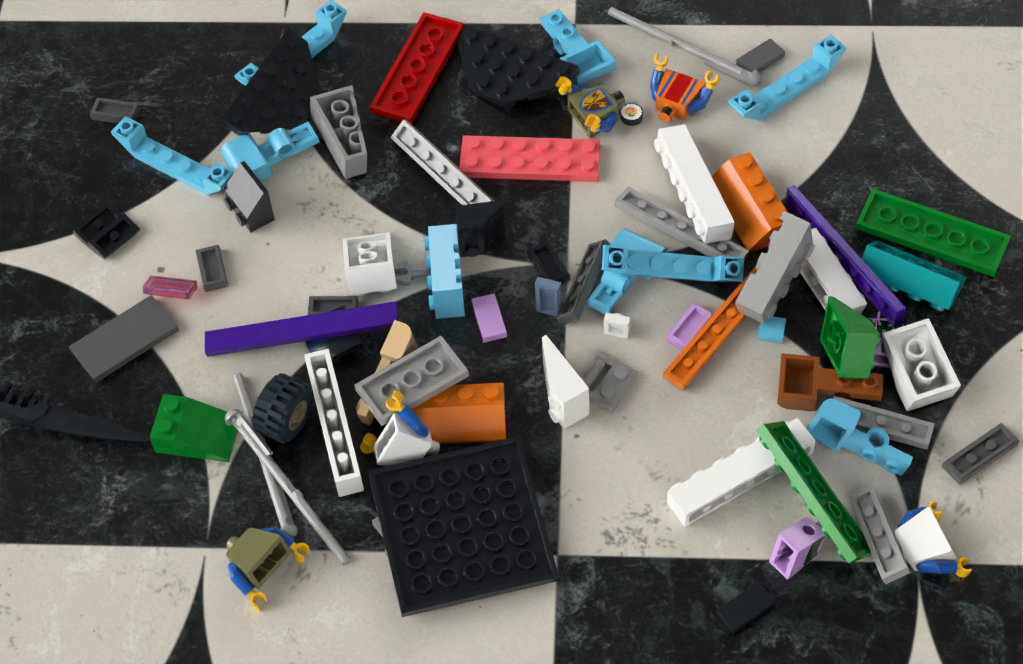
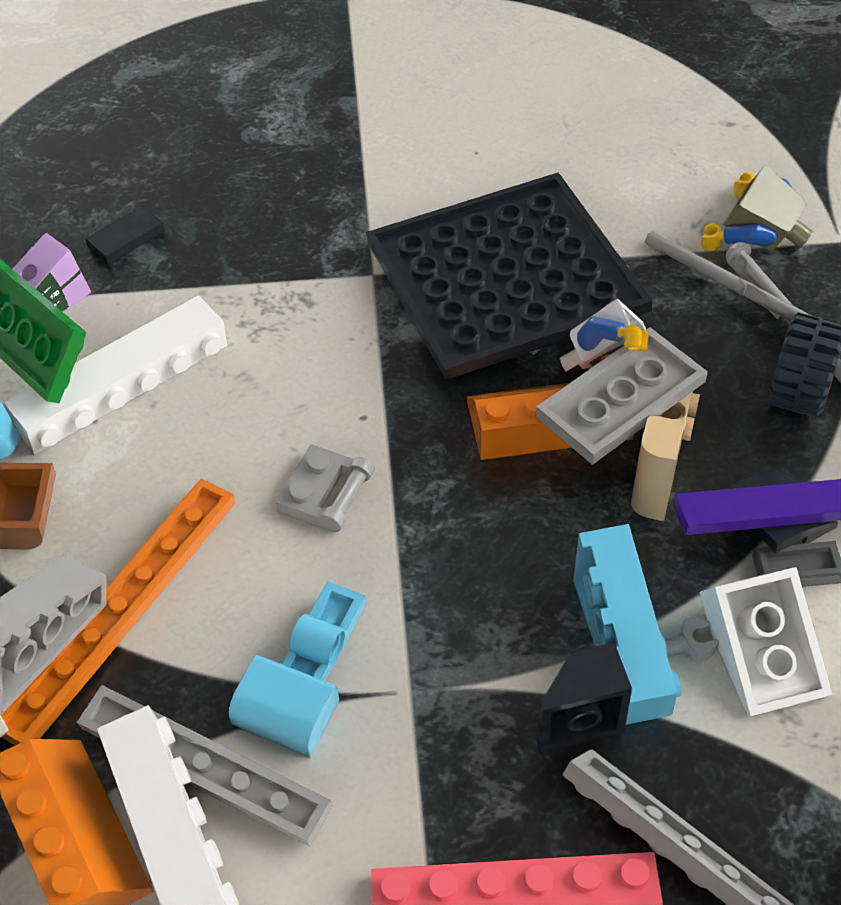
camera: 170 degrees right, 5 degrees down
(334, 423) = (733, 377): white brick -> none
(489, 318) = (531, 572): lavender tile -> none
(548, 263) = (445, 679): black tile -> none
(548, 296) = (431, 579): sand blue tile -> none
(565, 389) = (385, 434): white slope -> none
(582, 283) = (374, 642): dark grey tile -> none
(616, 325) = (312, 566): white plate -> none
(671, 265) = (126, 674): medium azure slope -> none
(688, 326) = (190, 589): lavender tile -> none

